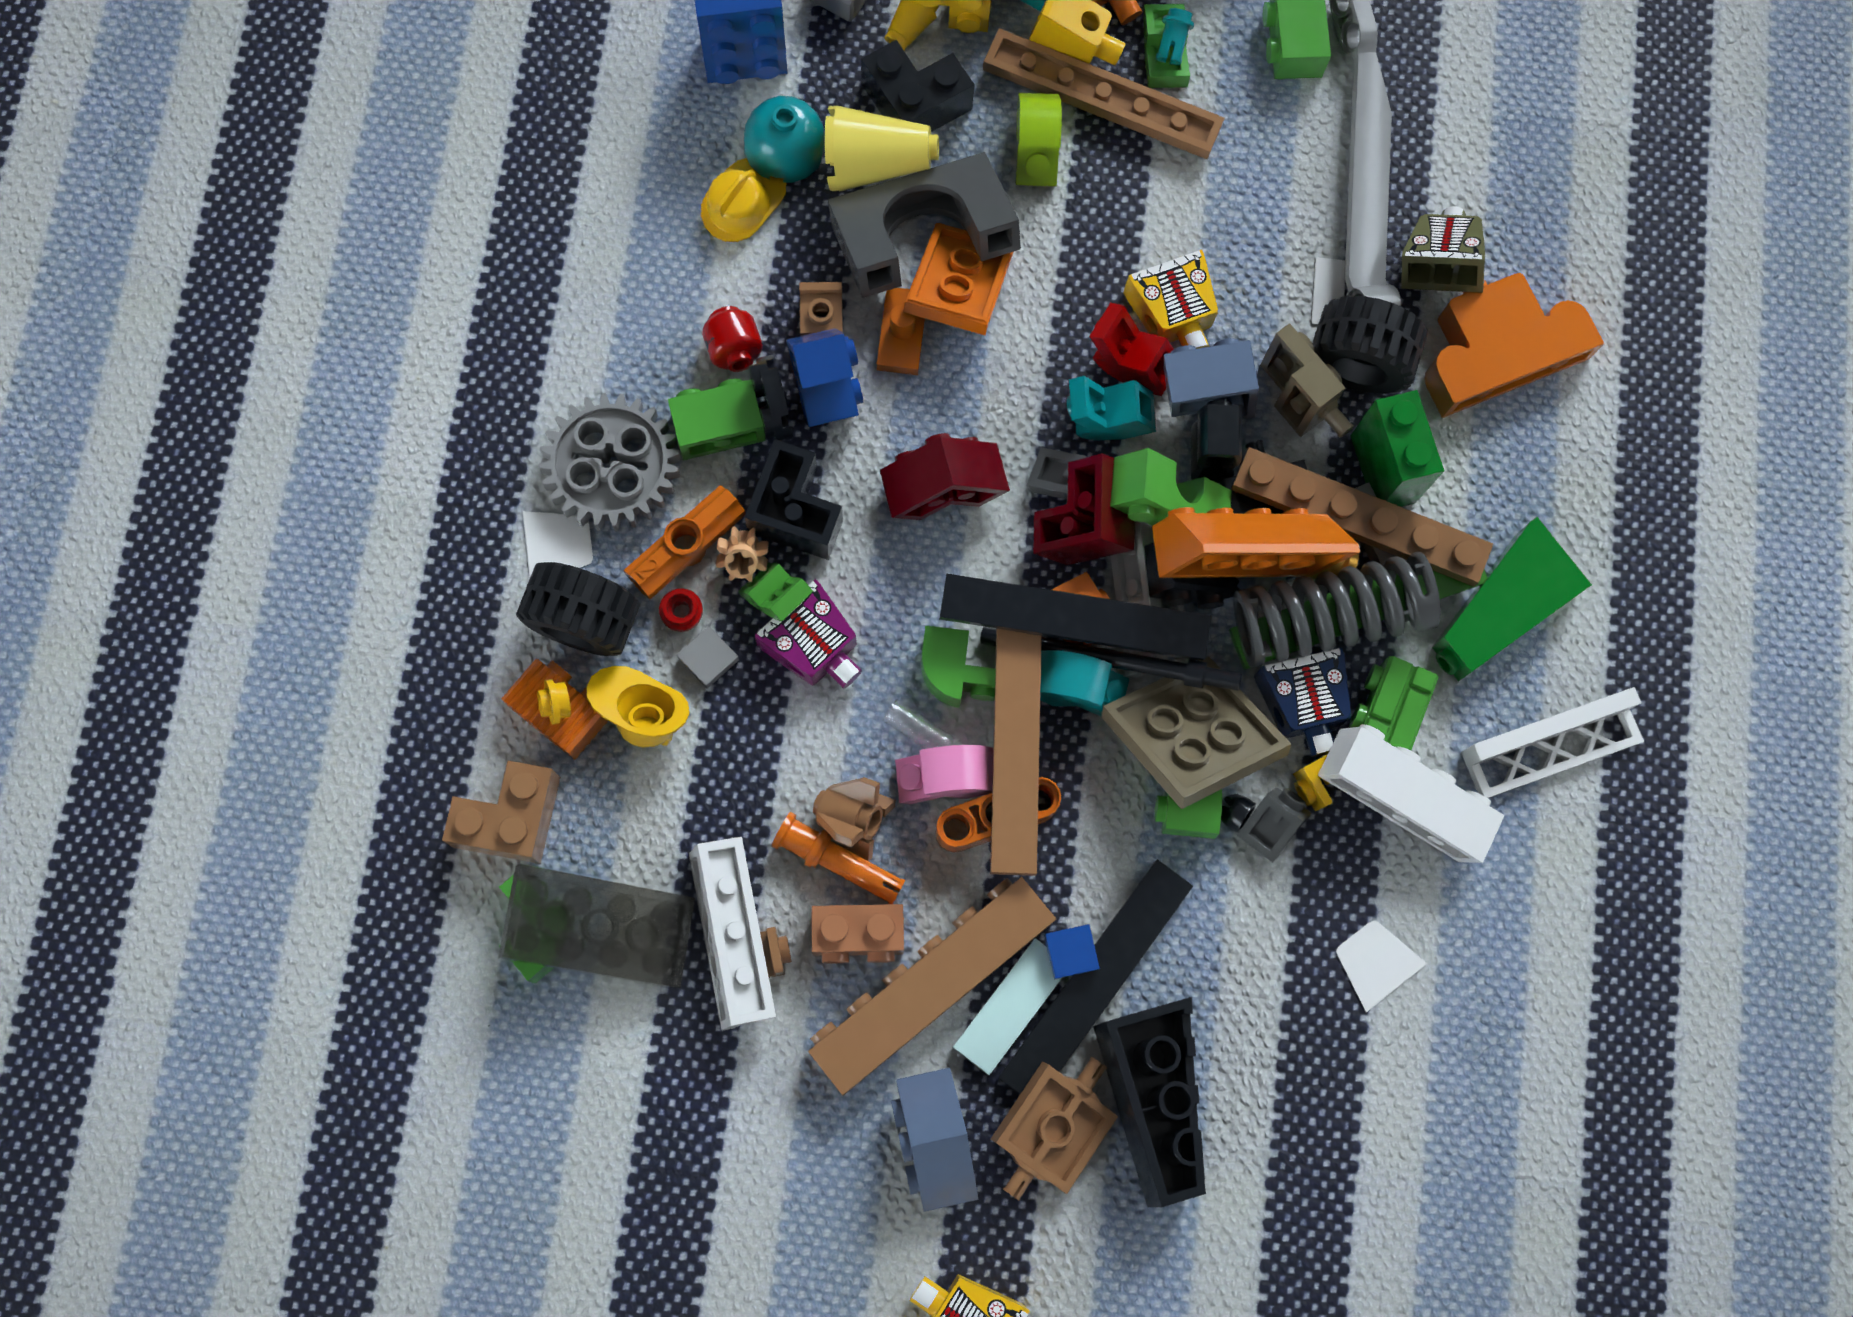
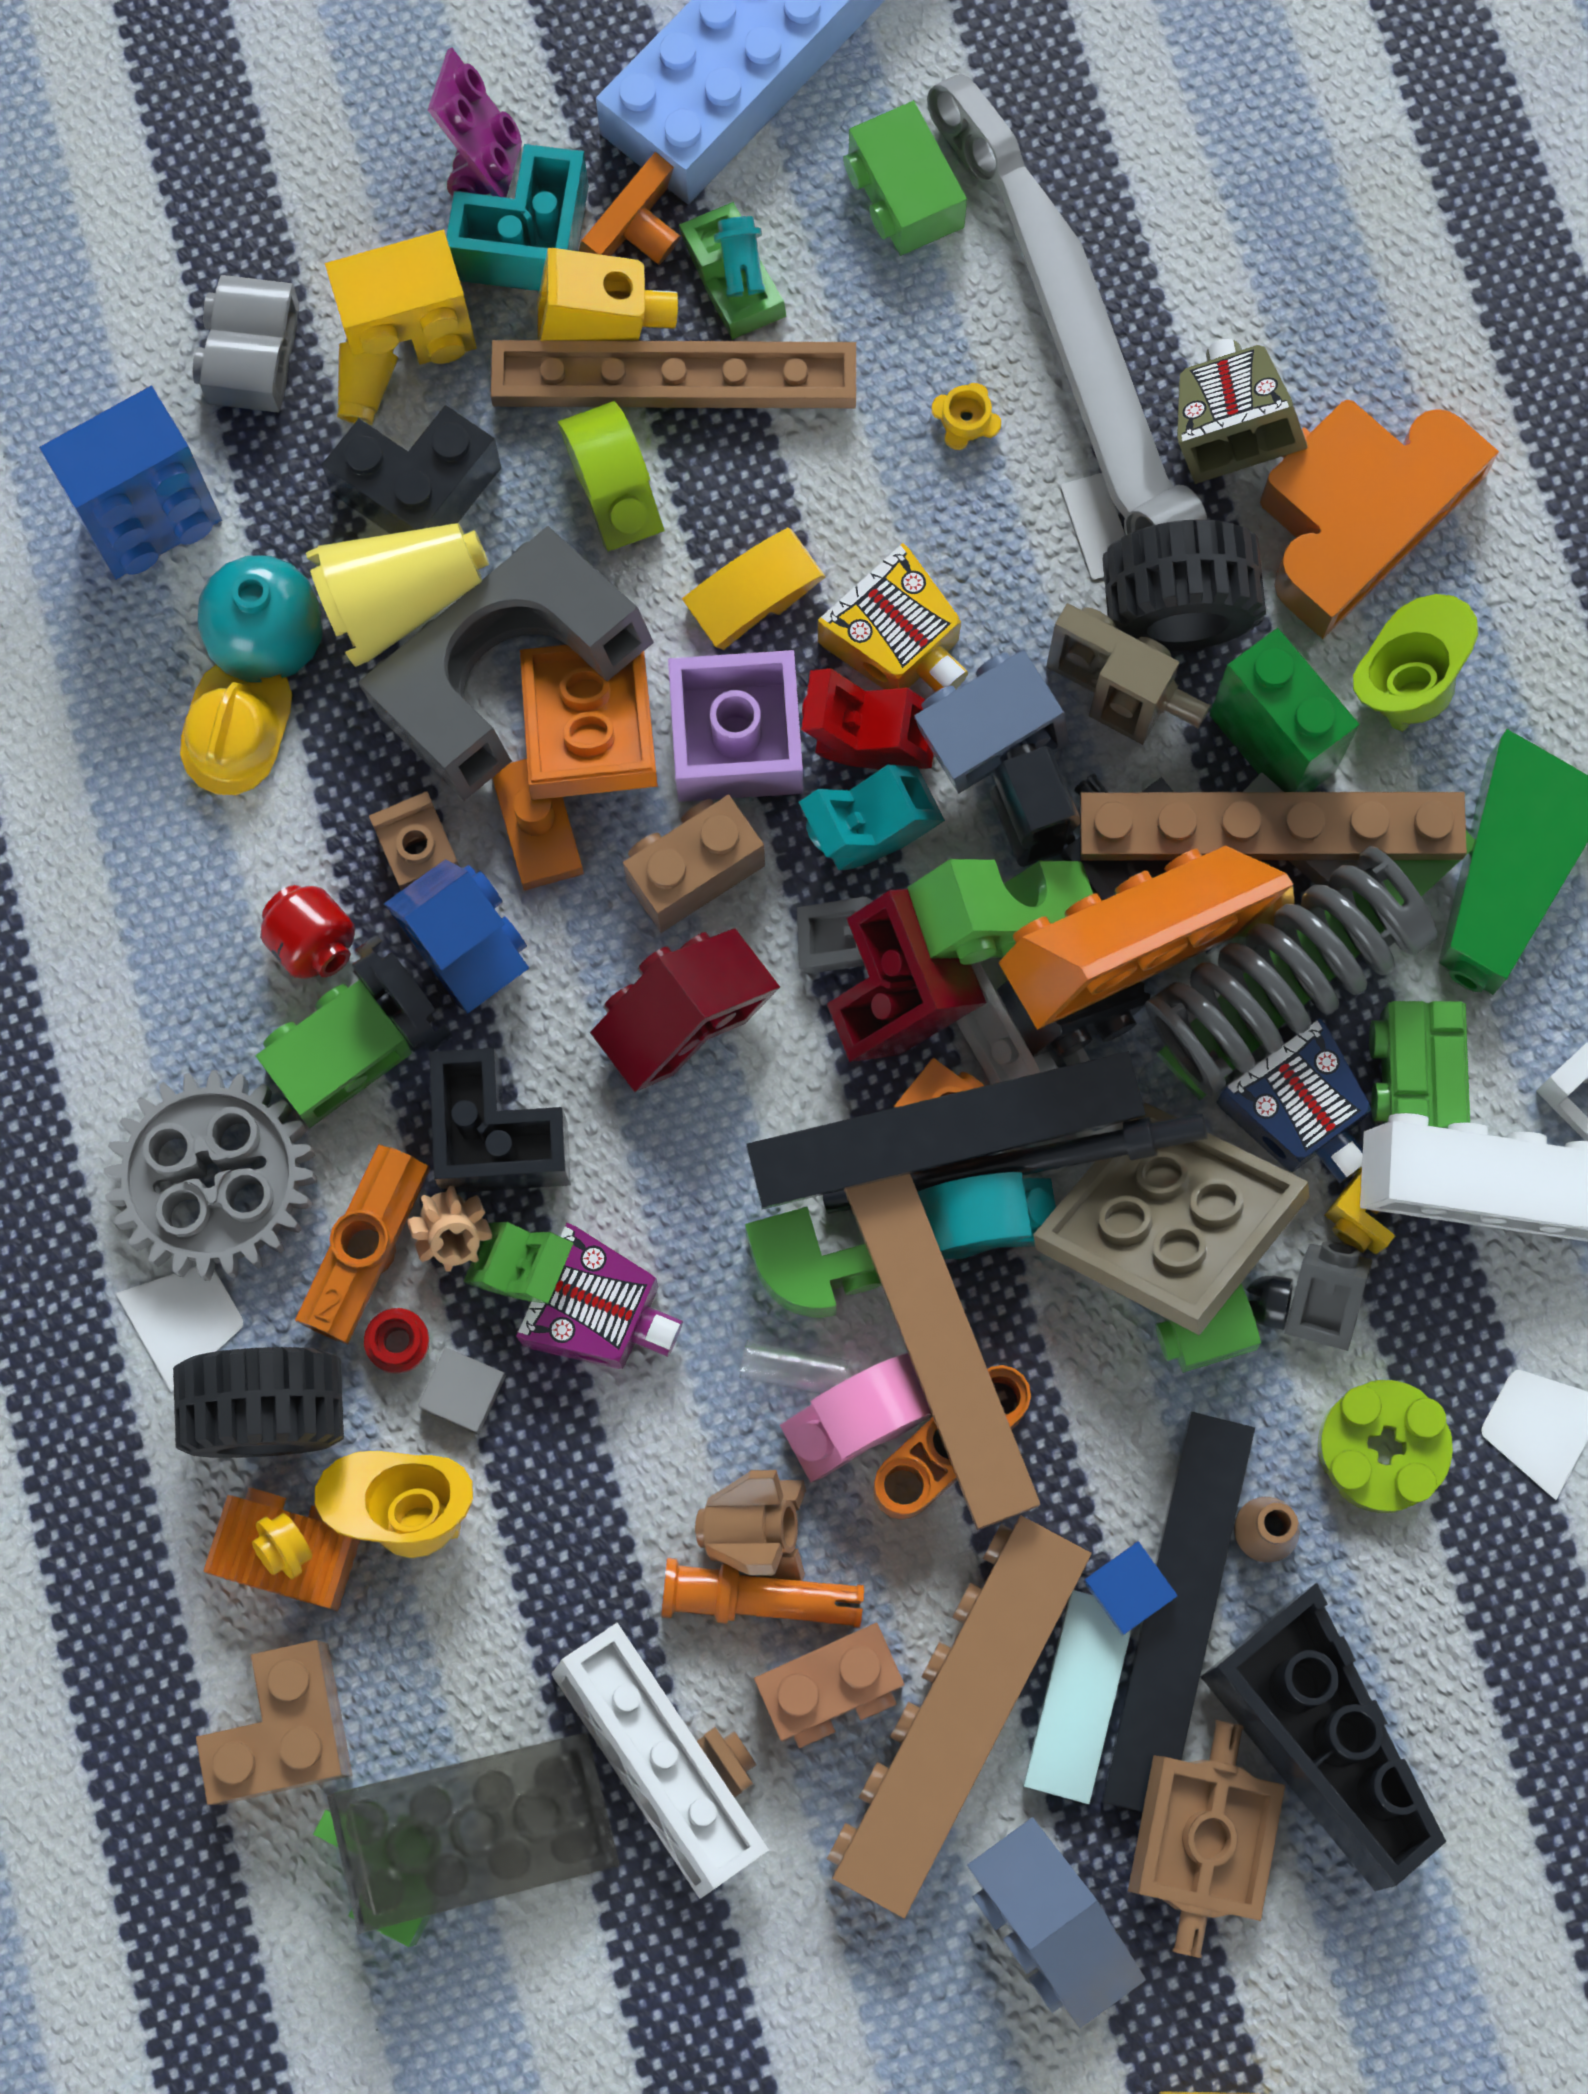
camera: 15 degrees left, 0 degrees up
(988, 393) = (693, 862): none -> medium nougat brick
(1049, 319) = (735, 725): none -> lavender brick
(1097, 240) = (752, 586): none -> yellow slope
(1165, 957) = (1254, 1537): none -> medium nougat cone
(1246, 938) = (1416, 1424): none -> lime plate
(1278, 180) = (971, 399): none -> yellow plate
(1496, 452) = (1416, 660): none -> lime piece

